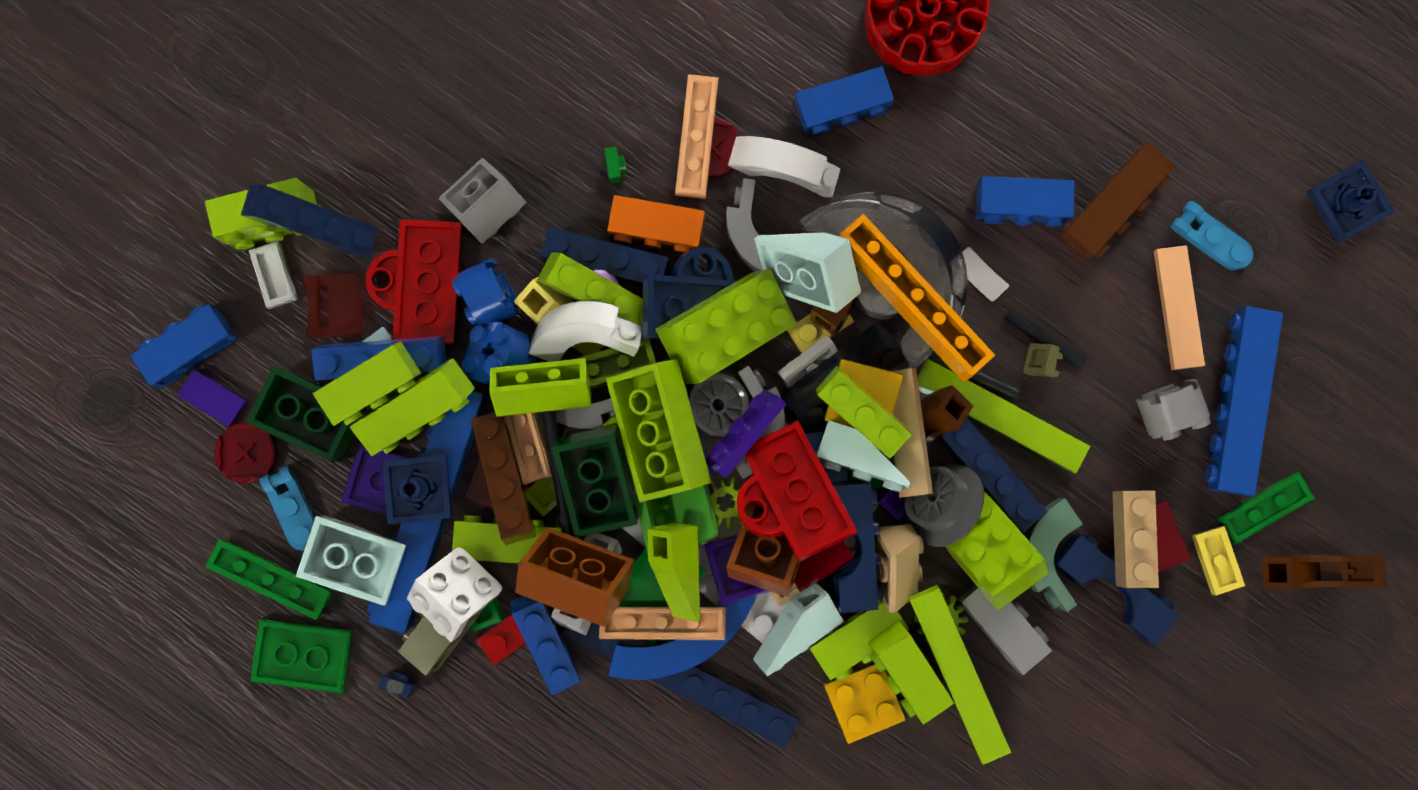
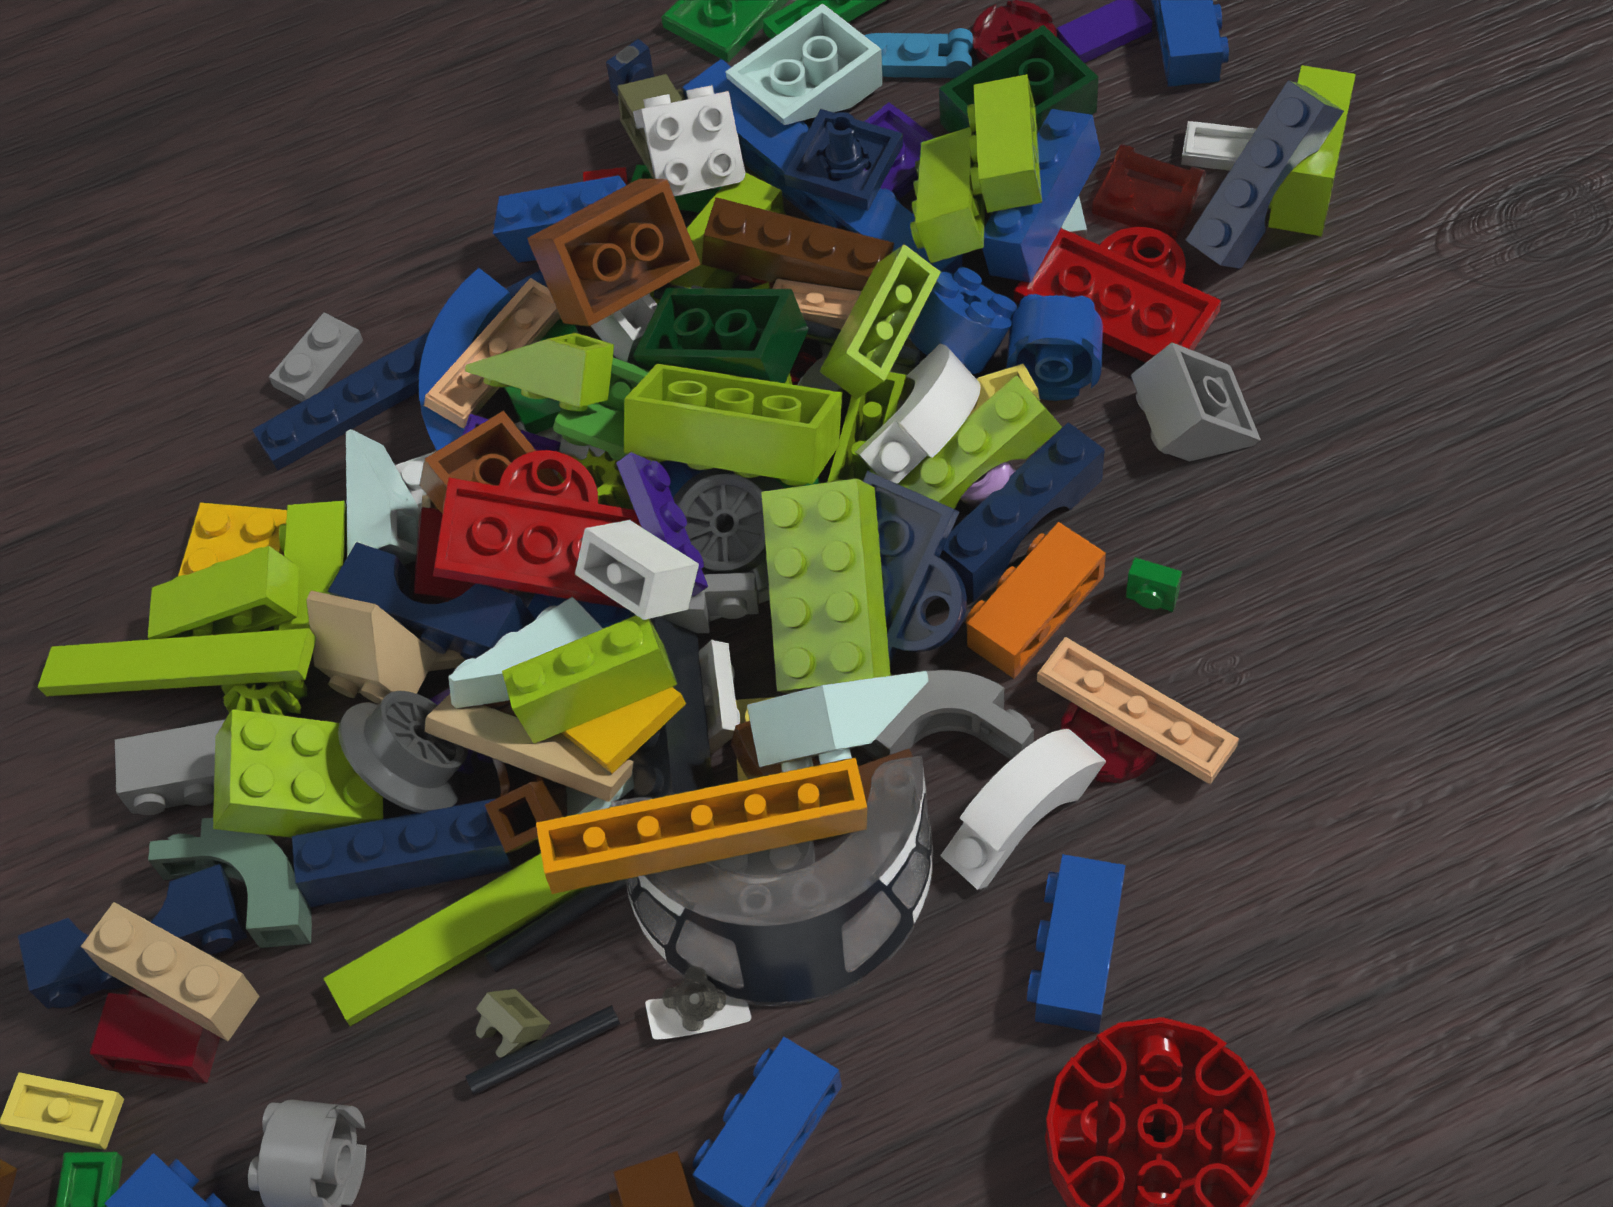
camera: 125 degrees right, 25 degrees down
(713, 746) = (316, 358): none -> light grey plate
(795, 415) = (636, 569): none -> white brick
(982, 269) = (709, 998): none -> clear smoke plate

